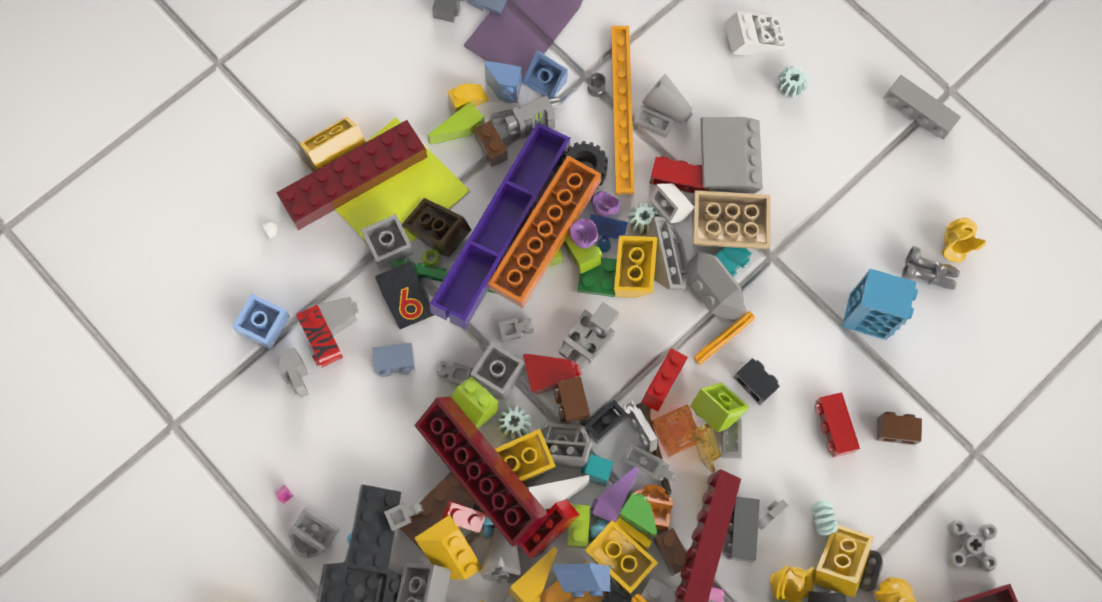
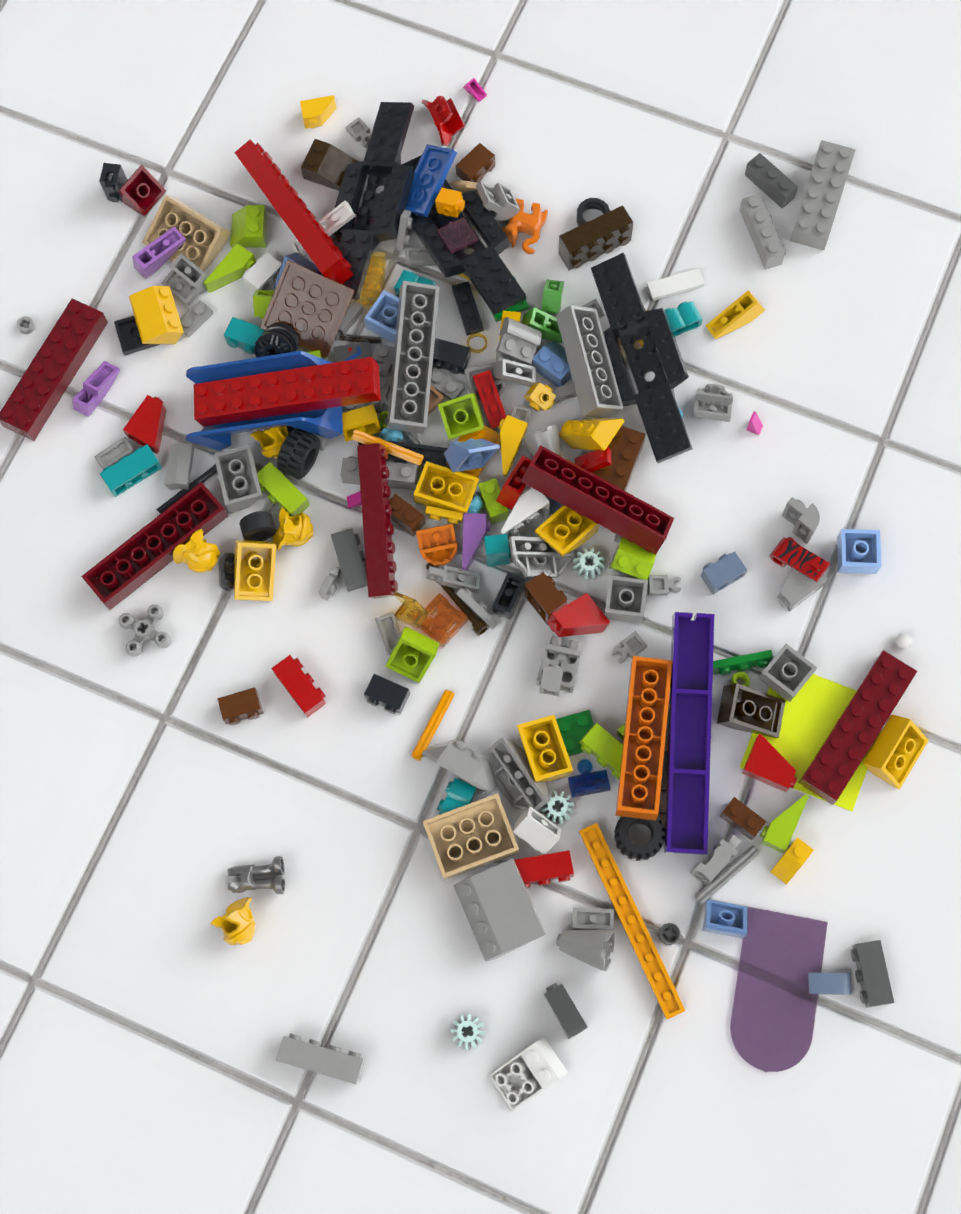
camera: 165 degrees right, 0 degrees up
(400, 515) = (646, 436): light grey plate -> none
(405, 294) = (746, 631): black slope -> none
(447, 176) = (769, 766): none -> red slope
(503, 80) = (763, 887): medium blue slope -> none
(583, 233) = (607, 751): medium lavender hair -> none
(605, 204) = (601, 805): medium lavender hair -> none
(639, 514) = (445, 525): bright green slope -> none
(664, 379) = (471, 654): red brick -> none
(708, 59) = (565, 1010): none -> dark grey slope
(824, 517) = (283, 596): light aqua gear -> none
(880, 304) = (296, 801): dark azure brick -> none

